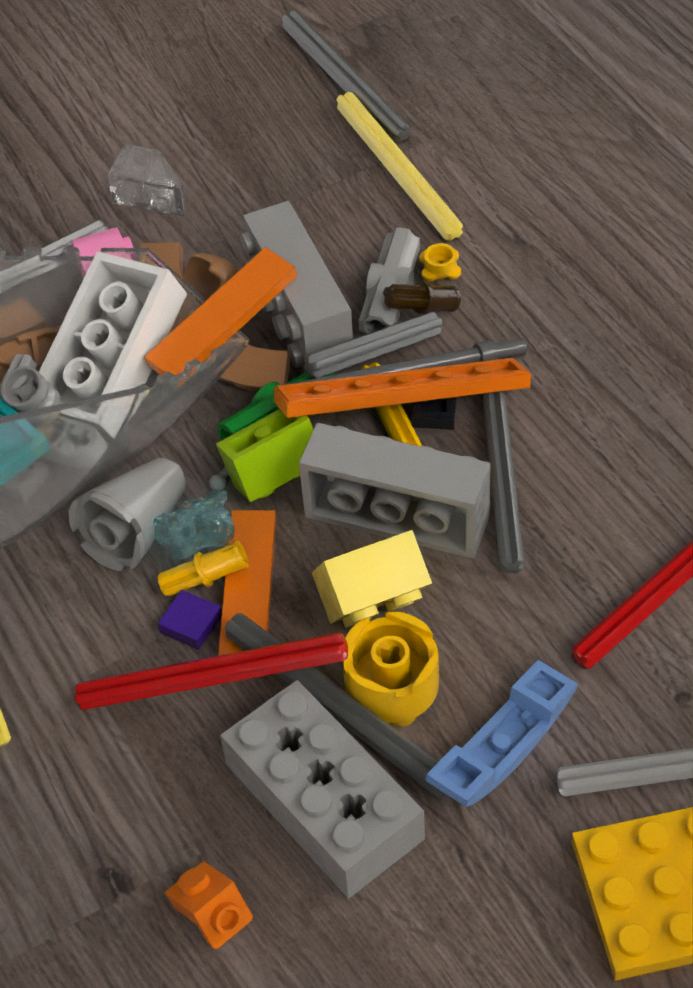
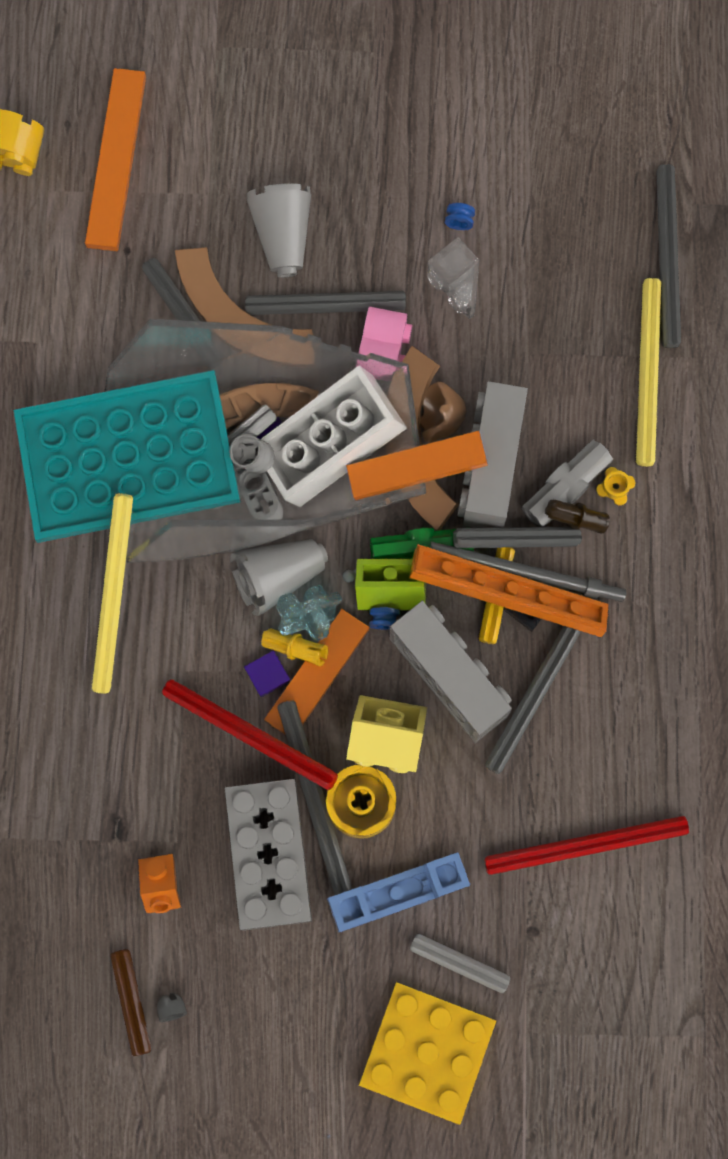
camera: 30 degrees right, 25 degrees up
(109, 130) = (460, 216): none -> blue bush
(284, 493) = (383, 617): none -> blue bush

